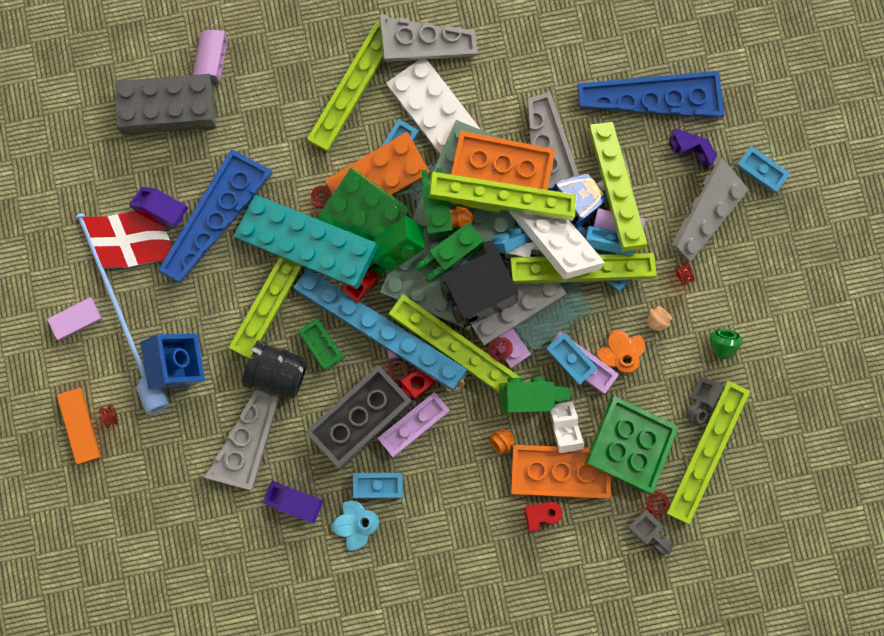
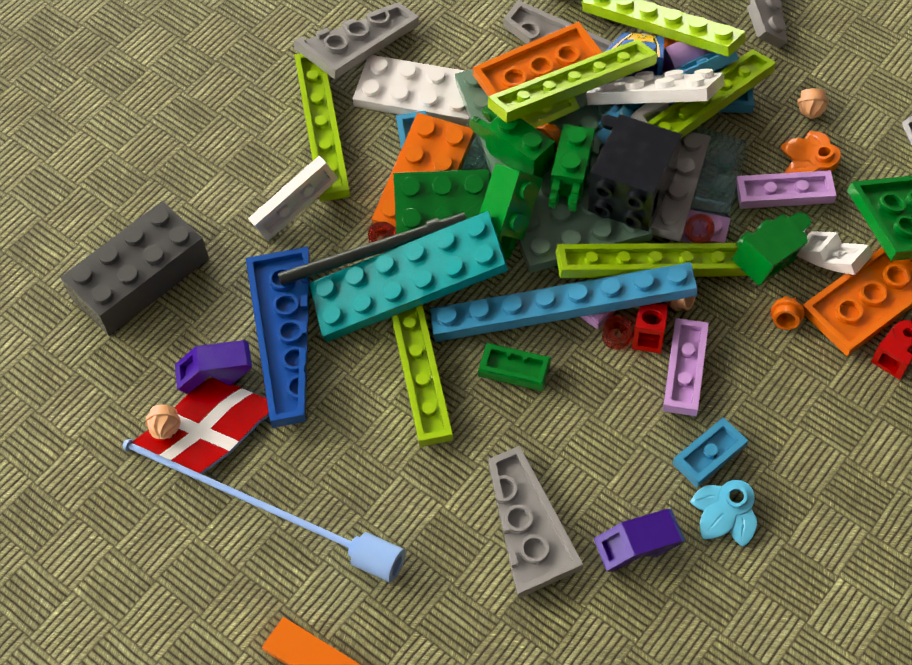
camera: 40 degrees left, 20 degrees down
(74, 319) = (212, 552): lavender tile -> none
(104, 221) = (163, 421): none -> light nougat plate
(109, 415) = (345, 618): clear red bush -> none
(172, 361) = (371, 495): blue brick -> none
(211, 54) = (140, 189): lavender brick -> none
(274, 371) = (494, 420): black piece -> none
(287, 131) = (293, 198): none -> white plate
(341, 222) = (367, 250): none -> pearl dark grey bar
(359, 417) = (627, 398): dark grey brick -> none
(367, 284) = (505, 282): red leg -> none
(571, 358) = (776, 184): dark azure plate -> none
(684, 273) = (797, 46): clear red bush -> none
(725, 343) = (892, 78): green cone -> none

